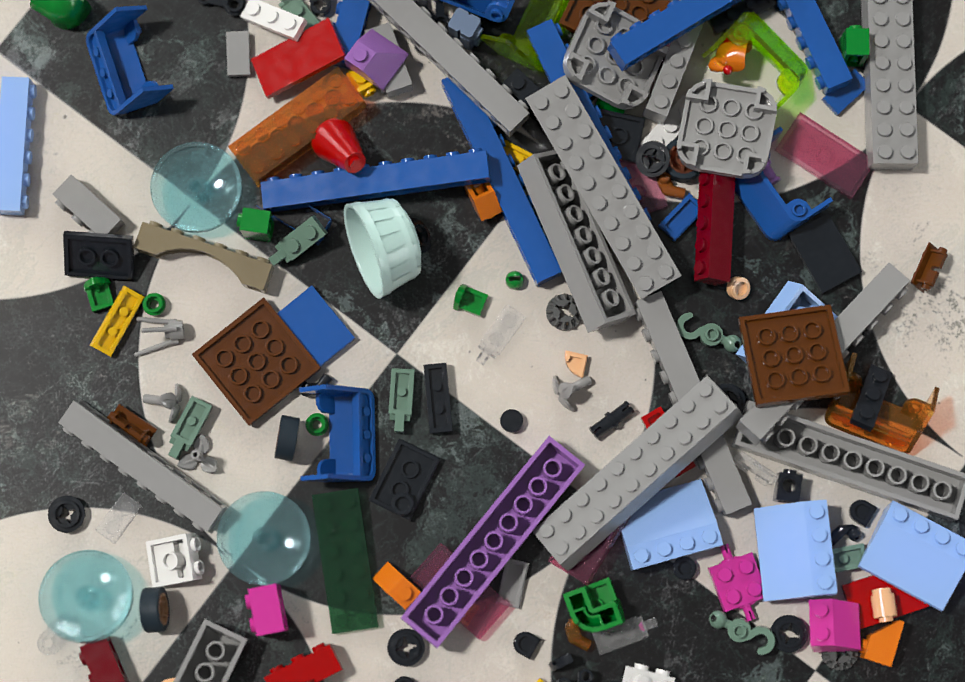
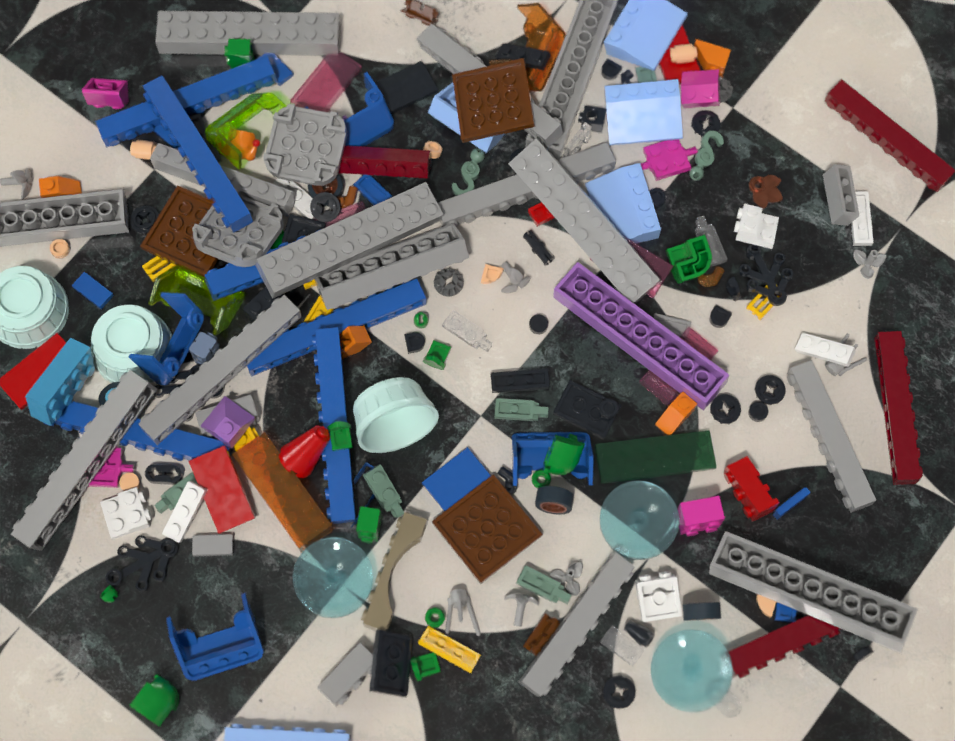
camera: 90 degrees left, 10 degrees down
(132, 538) = (639, 633): none -> black cone
(336, 446) = (563, 455): none -> green brick
(356, 186) = (340, 435): none -> green tile
(486, 273) = (414, 342): none -> black tile

